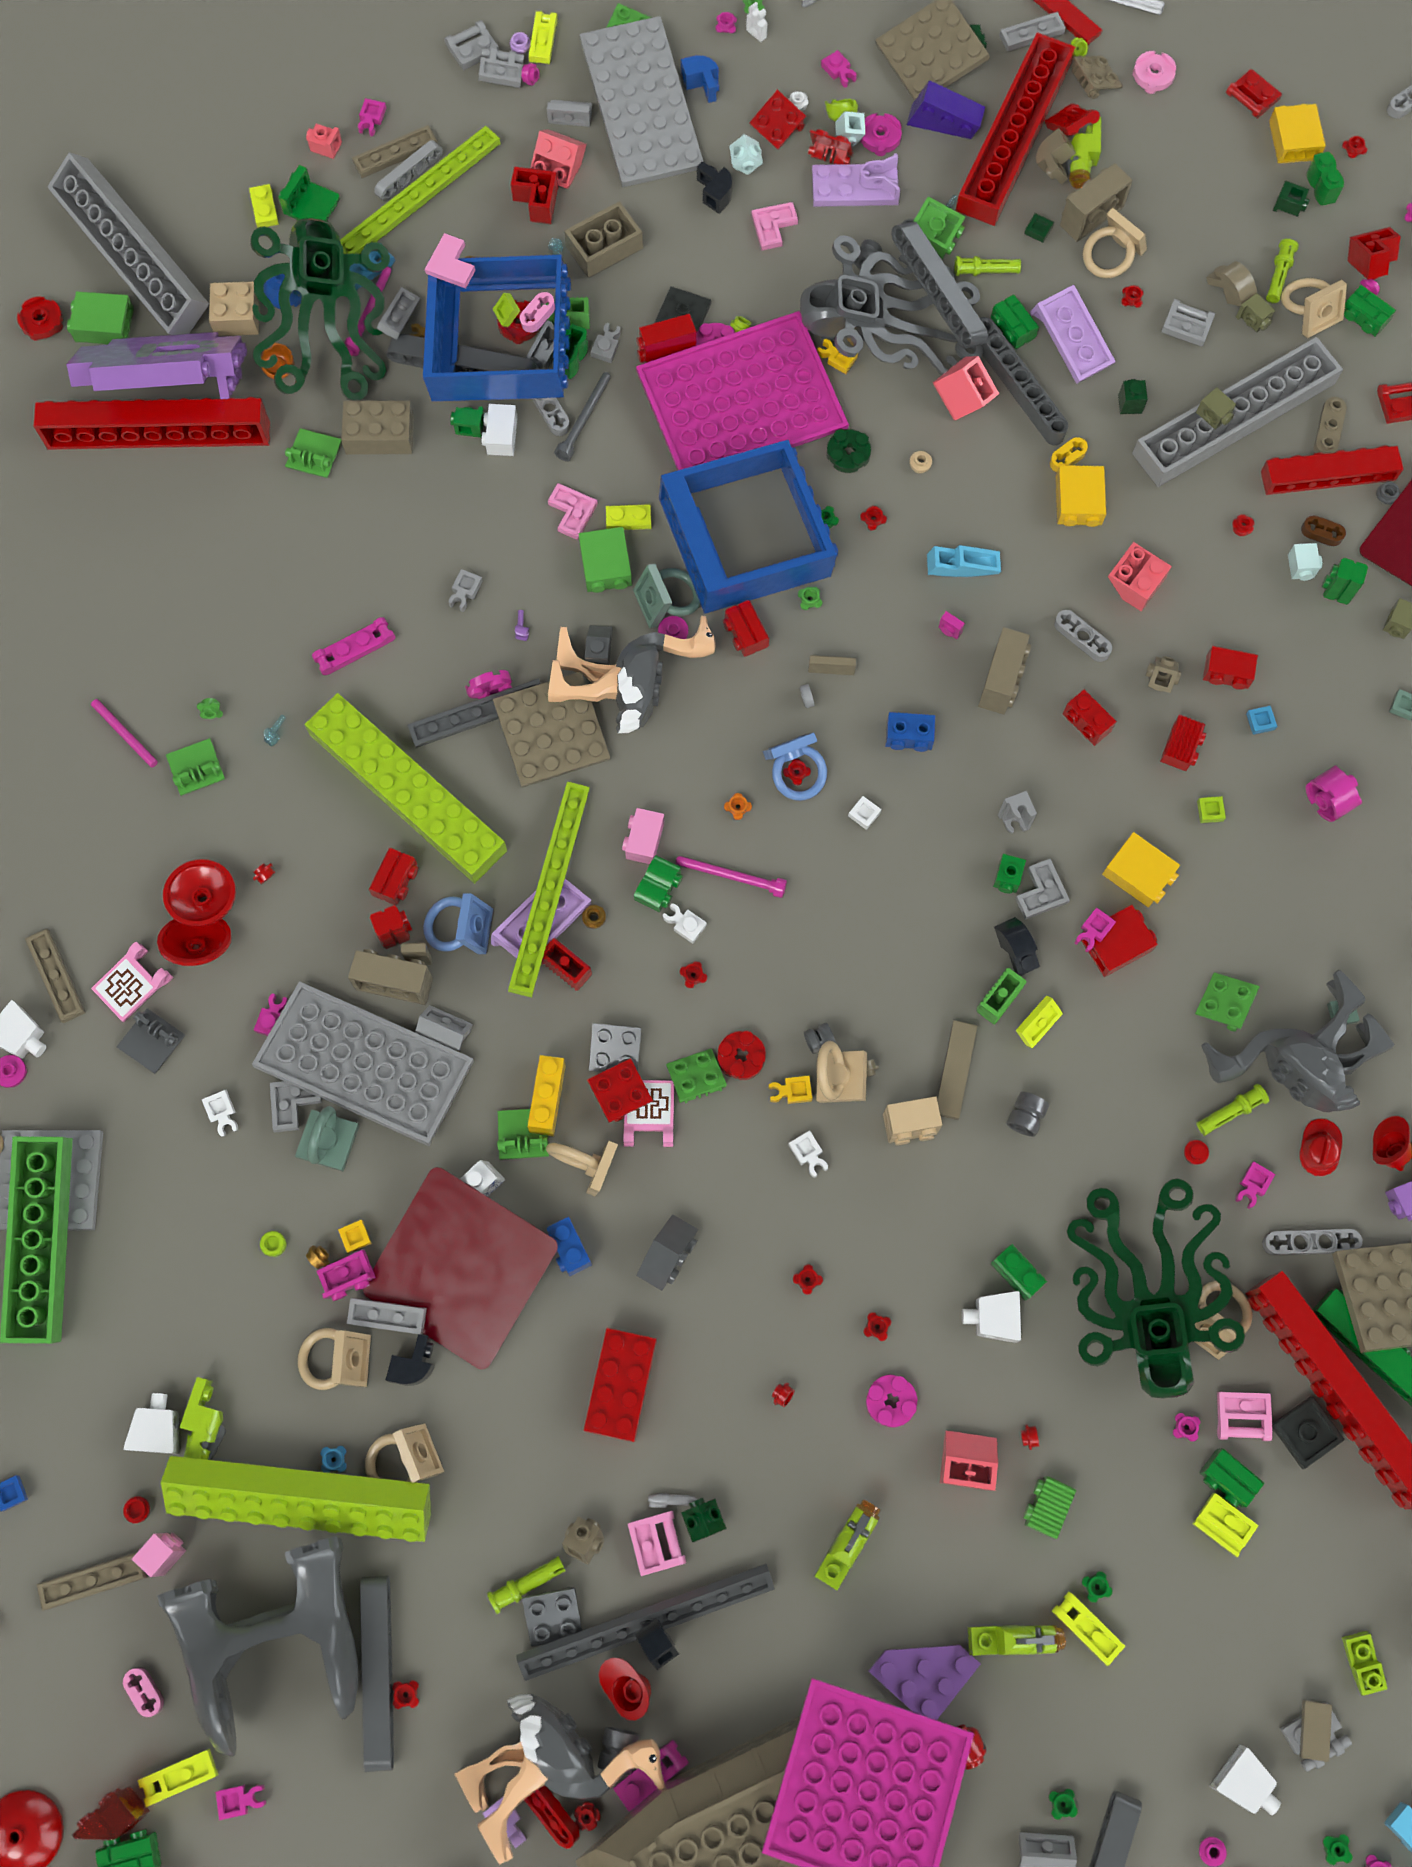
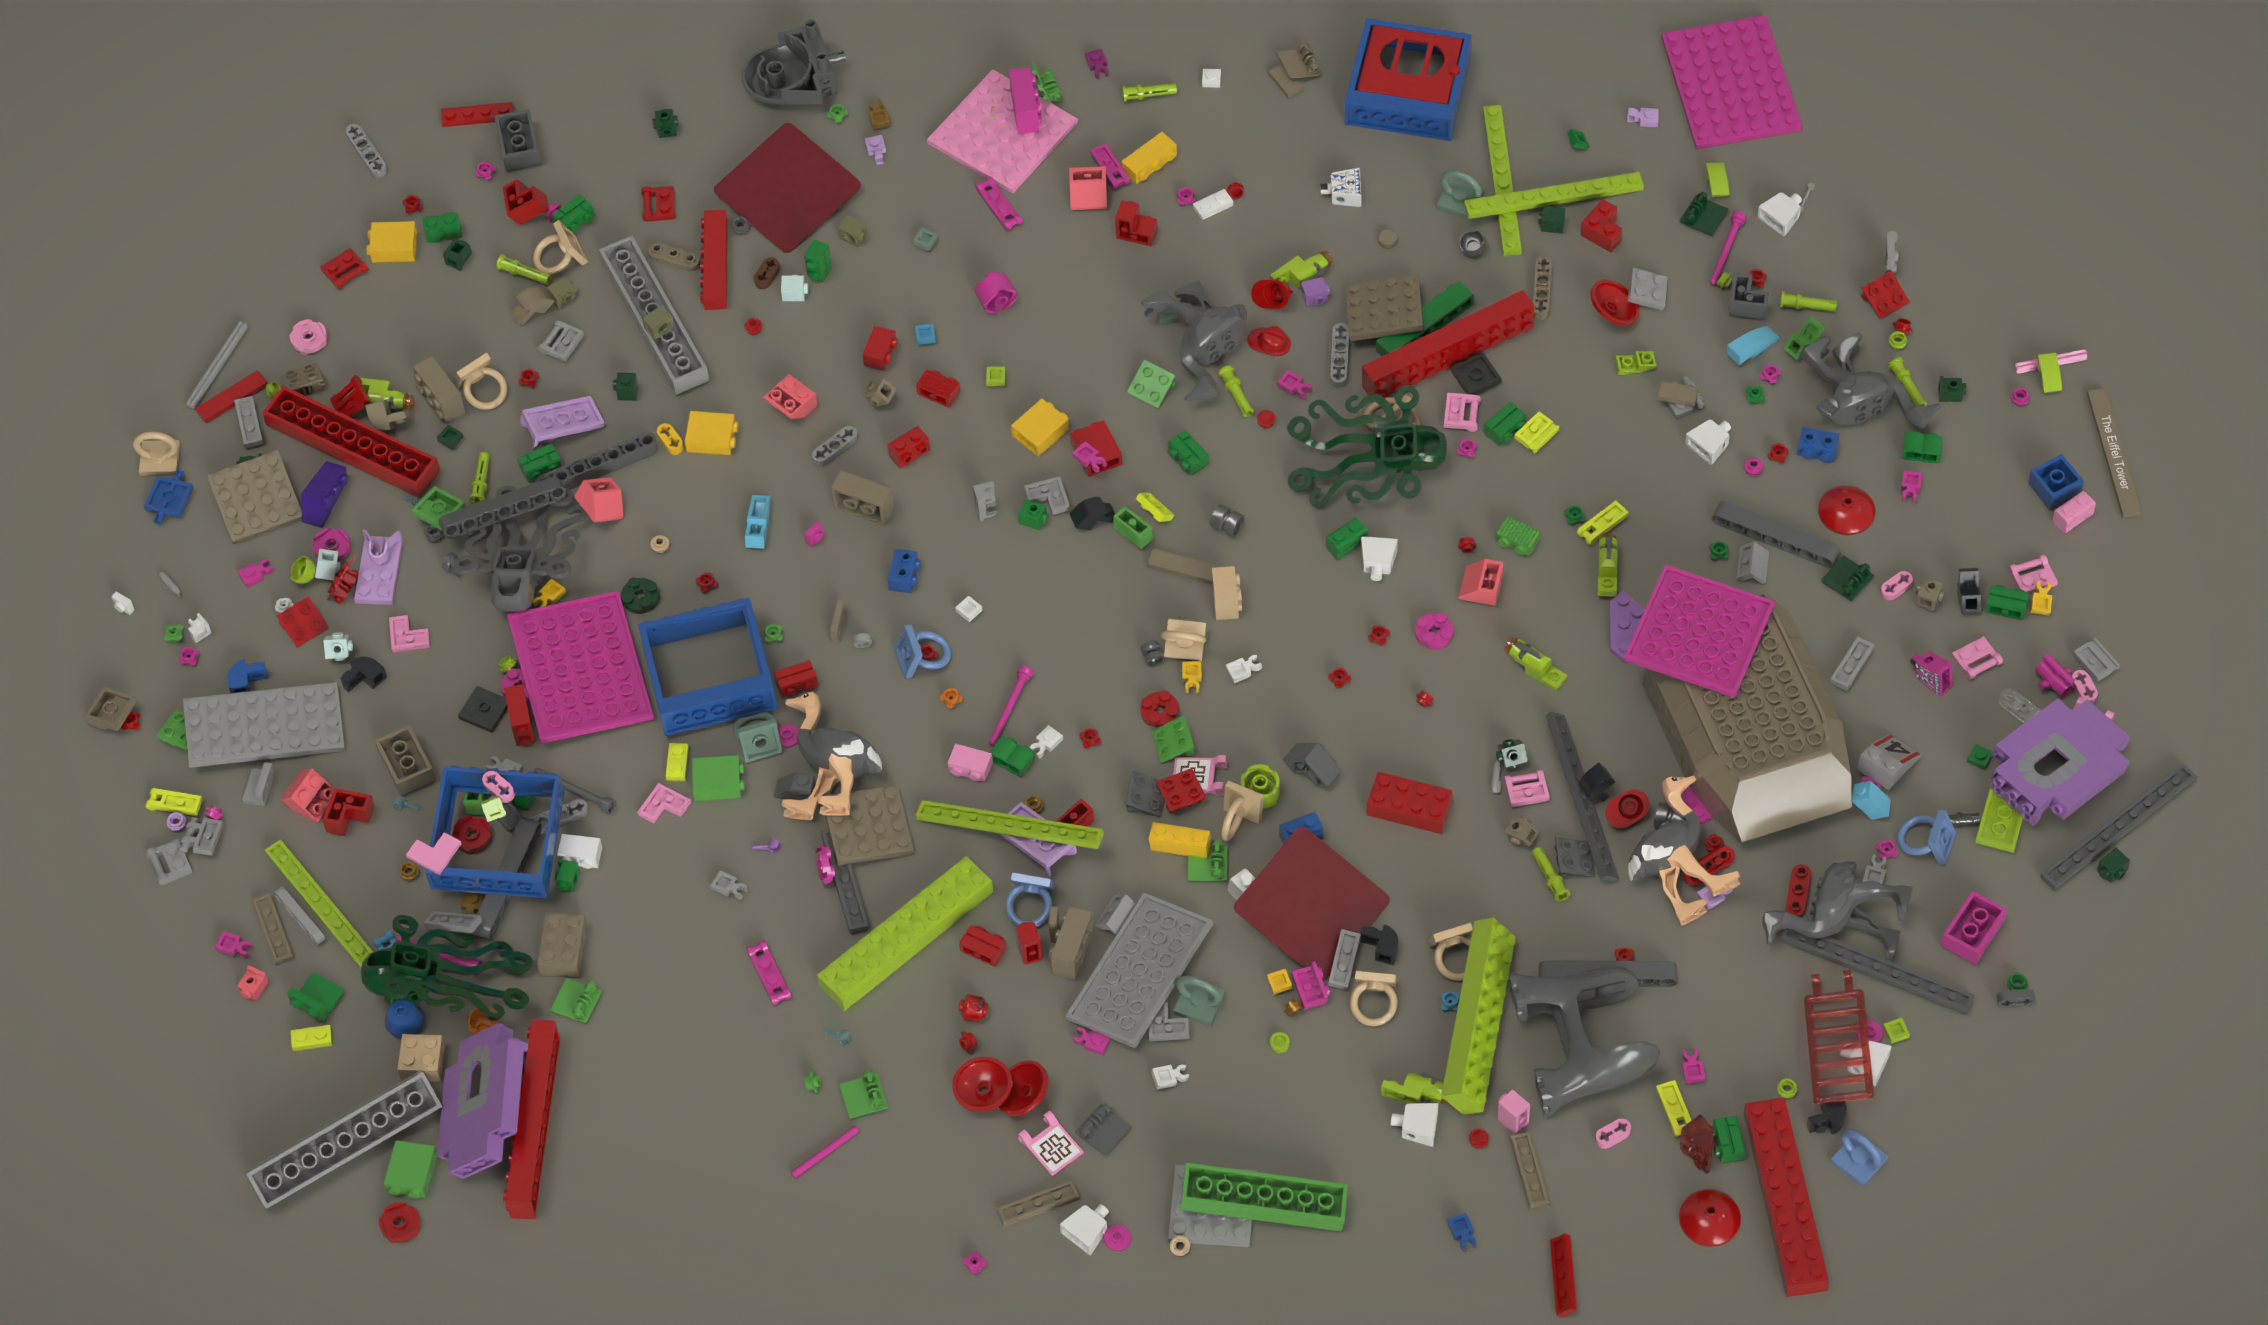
camera: 80 degrees left, 15 degrees down
(307, 874) = (973, 1008): none -> red head
(616, 1181) = (1264, 781): none -> lime brick
(1127, 1055) = (1187, 452): none -> green brick

